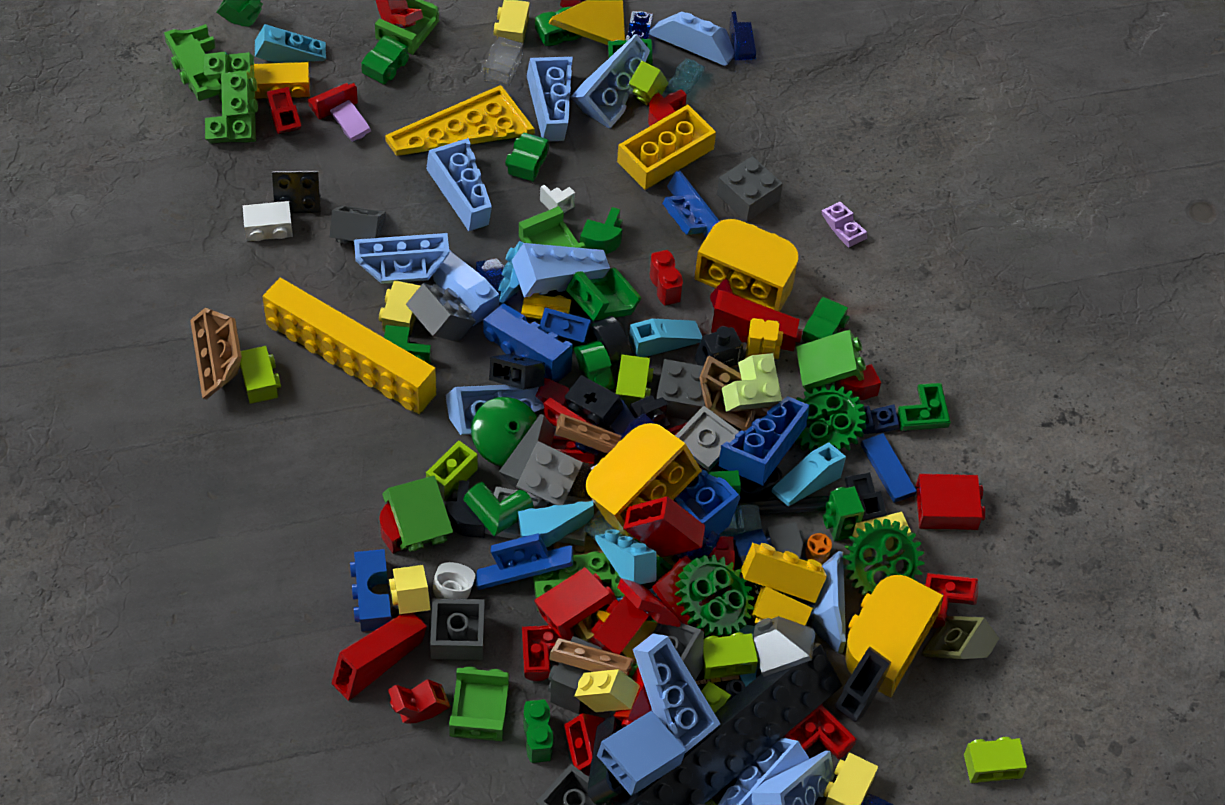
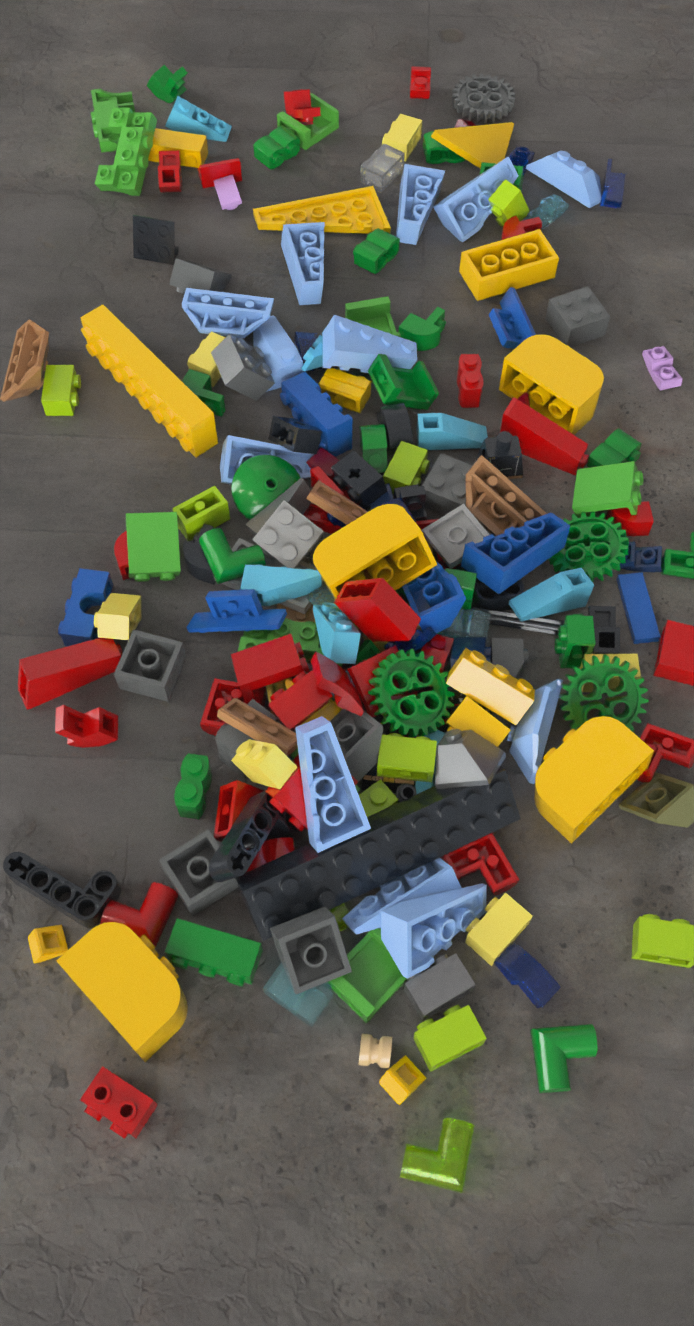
camera: 20 degrees right, 5 degrees up
(267, 221) = (121, 261): white brick -> none
(453, 581) = (165, 618): white cap -> none
(479, 704) = (148, 745): bright green panel -> none
(556, 198) = (396, 292): white panel -> none
(566, 326) = (356, 403): blue panel -> none
(641, 752) = (273, 838): medium blue brick -> none
(758, 385) = (523, 495): yellowish green brick -> none
(764, 338) = (544, 458): yellow brick -> none
(818, 542) = (538, 665): orange wheel -> none
(863, 684) = (541, 824): black slope -> none

